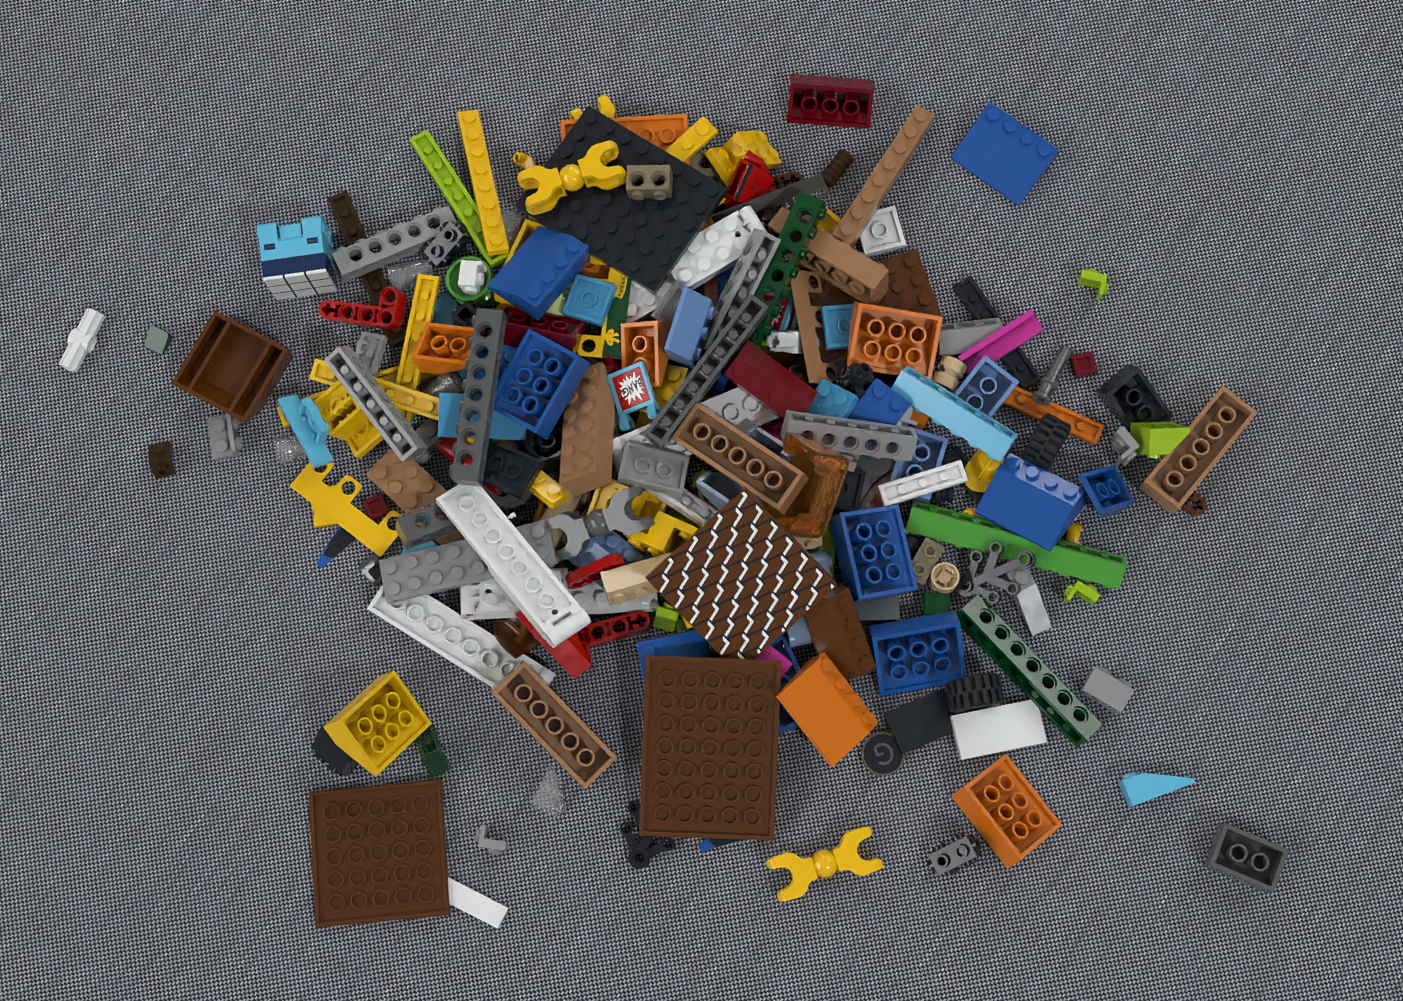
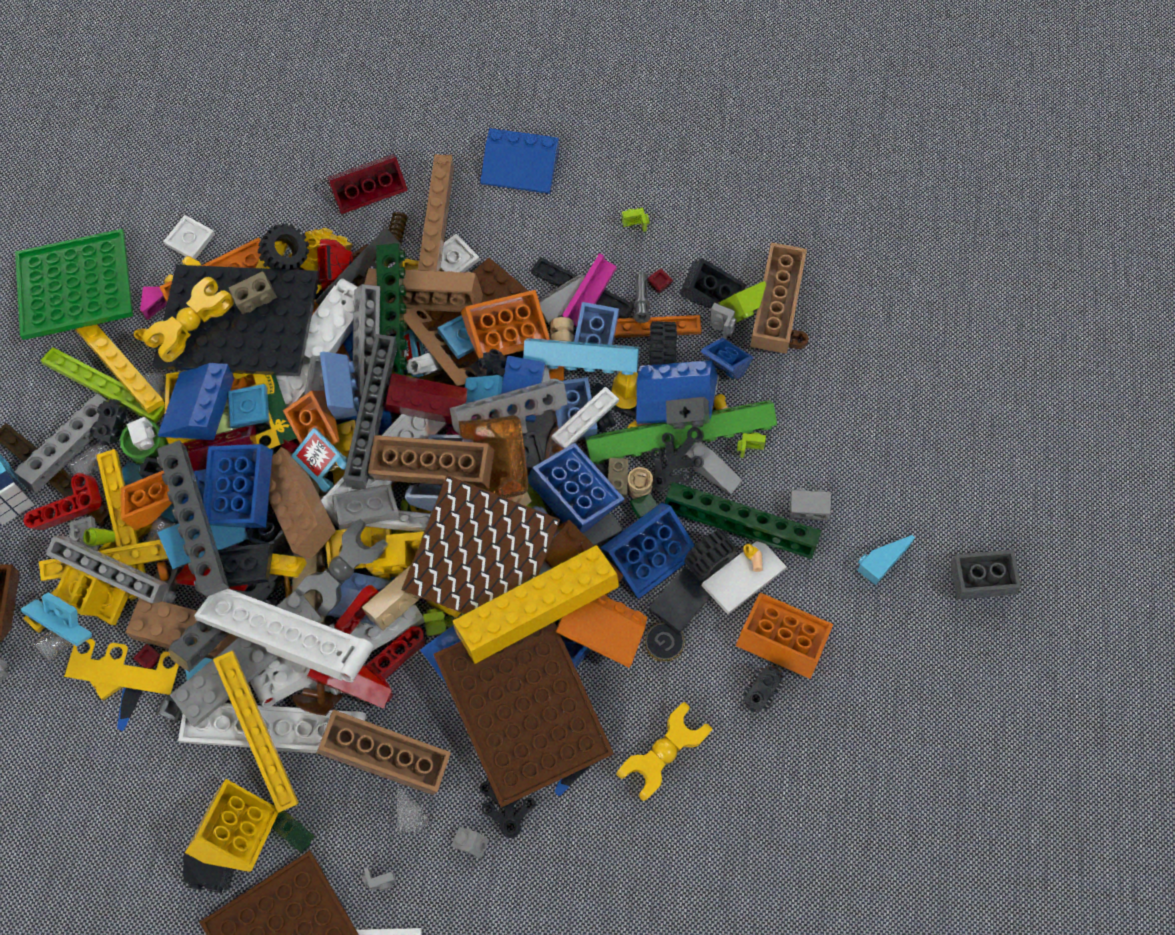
camera: 30 degrees left, 10 degrees down
(382, 362) = (97, 536): none -> lime cone
(429, 429) = (163, 571): none -> orange tile
(442, 639) = (255, 731): none -> yellow plate
(478, 70) = (73, 284): none -> green plate
(547, 127) = (152, 301): none -> dark pink slope
(593, 851) = (470, 842): none -> light grey bracket
(617, 73) = (189, 237): none -> white plate
(720, 149) = (292, 239): none -> black tyre
(771, 659) = (535, 604): none -> yellow brick
(1016, 532) = (678, 408): none -> dark grey brick
(1020, 715) = (755, 556): none -> arm

